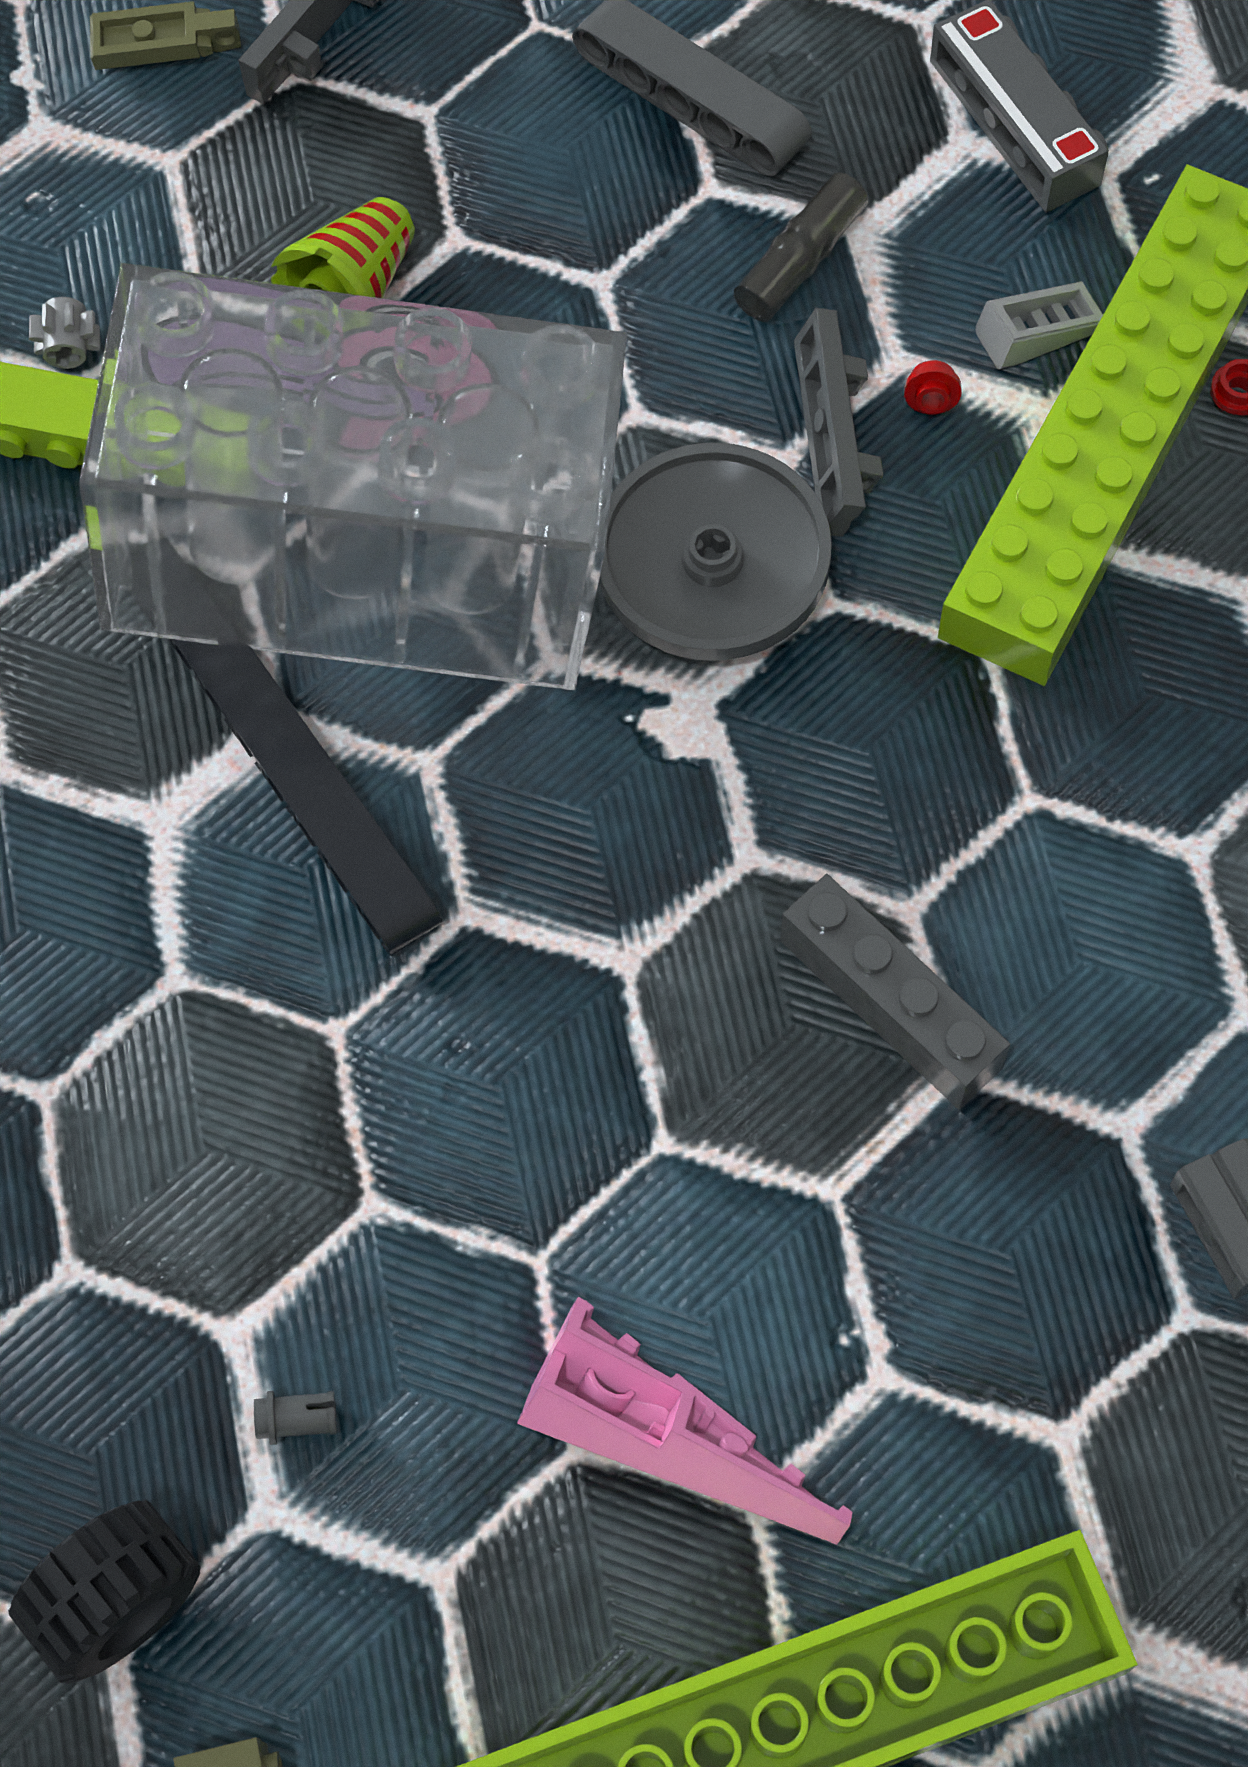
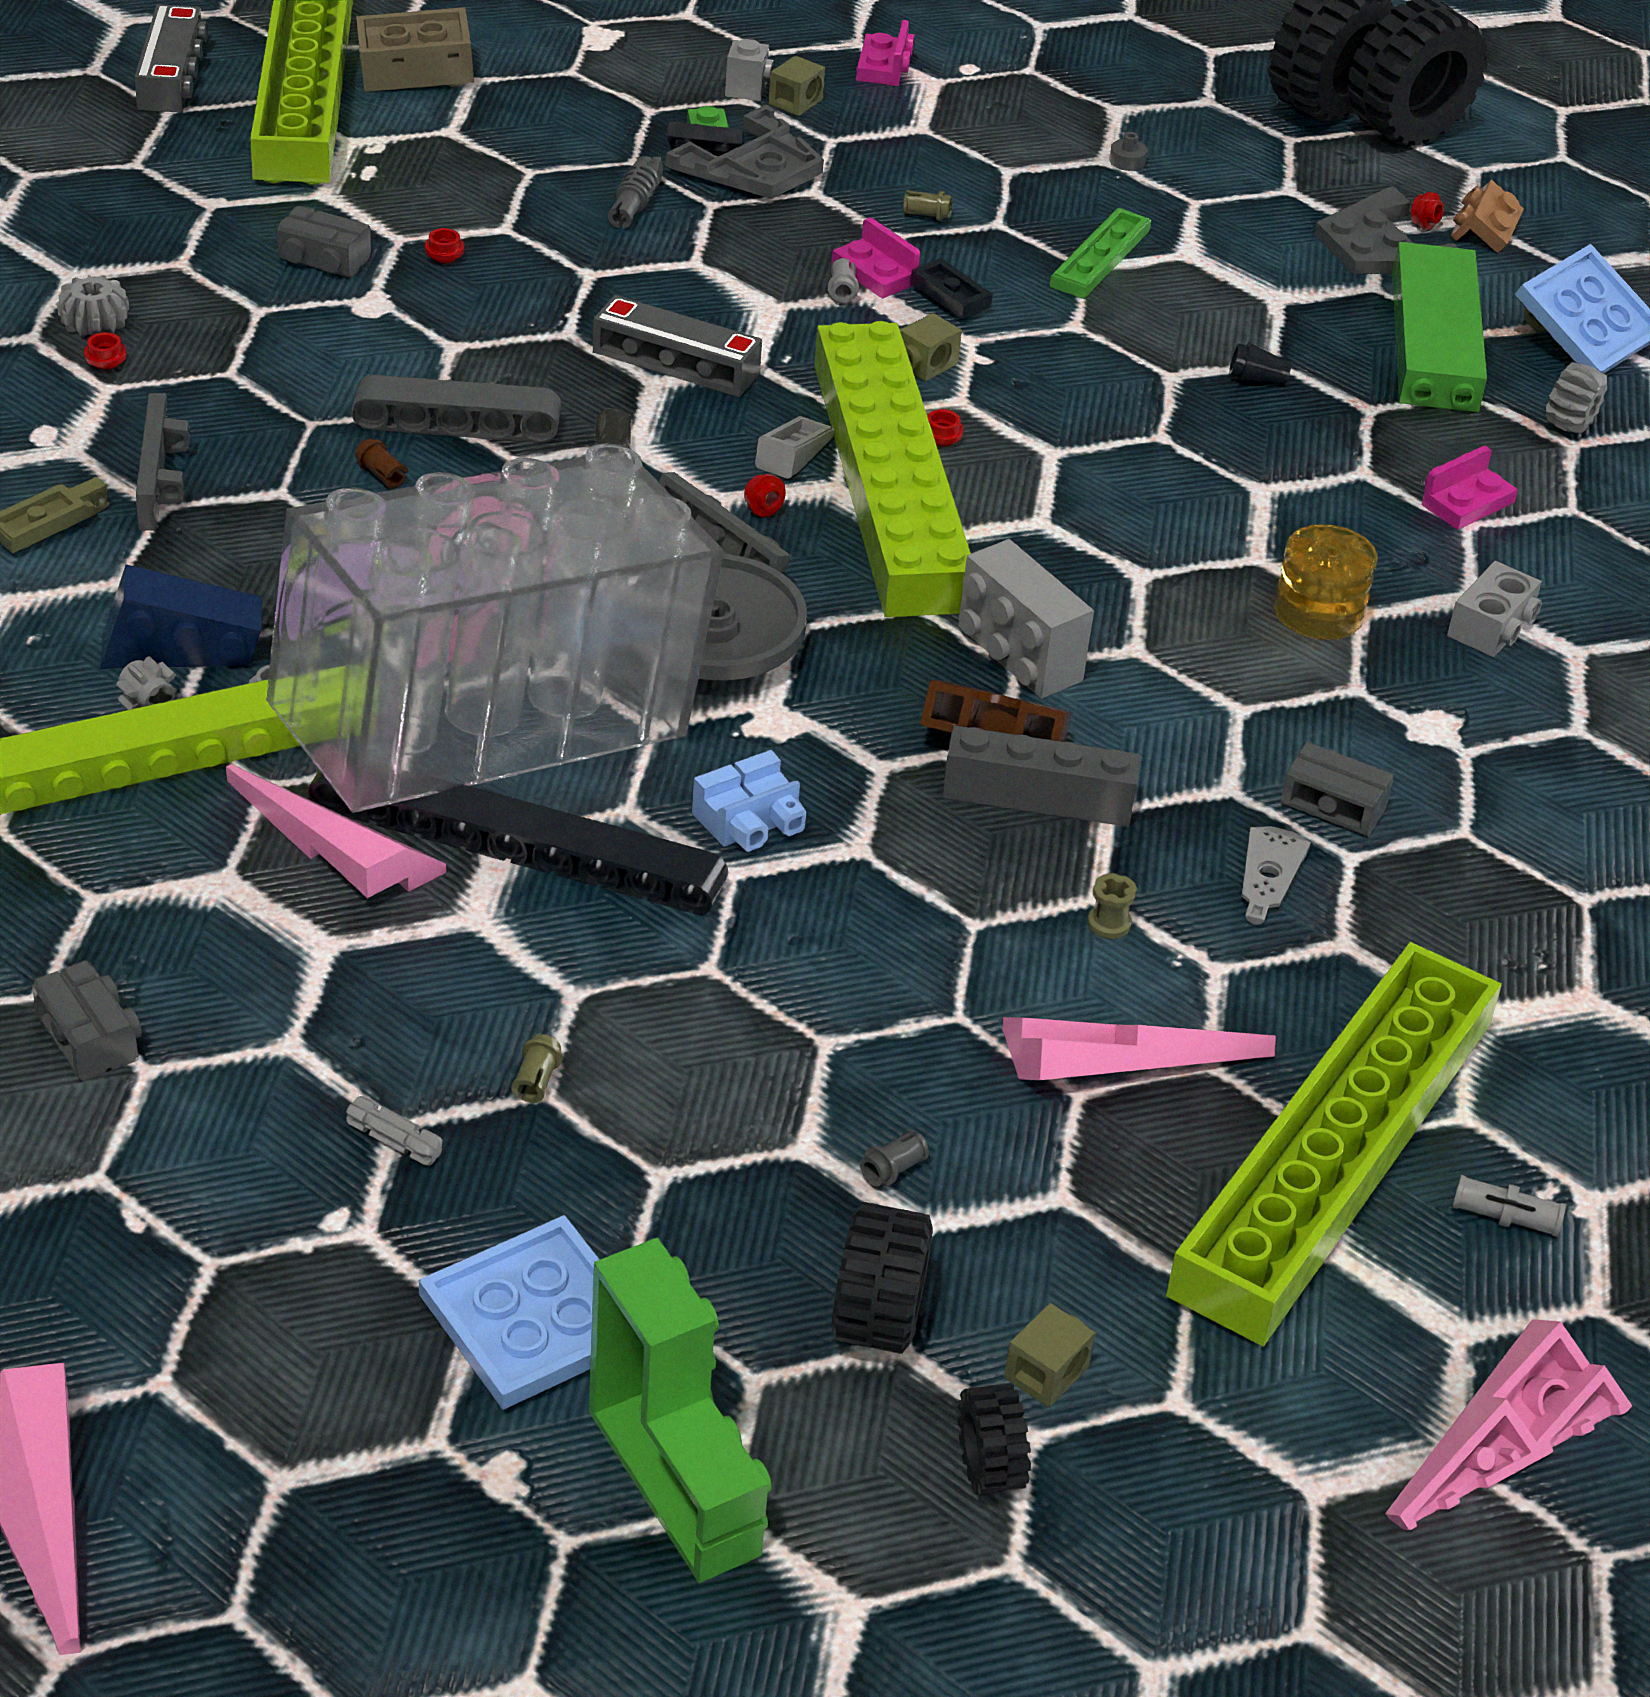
camera: 45 degrees left, 25 degrees down
(46, 1063) = (541, 1057): none -> olive pin
(100, 676) = (358, 852): none -> bright pink wedge
(132, 229) = (179, 622): none -> dark blue wedge
(515, 841) = (748, 802): none -> light blue hips
(548, 114) = (373, 457): none -> reddish brown pin
(816, 1204) = (1111, 912): none -> olive bush
(882, 842) = (970, 707): none -> reddish brown arch
(1056, 752) = (1025, 618): none -> light grey brick
(1076, 1260) = (1271, 852): none -> light grey piece

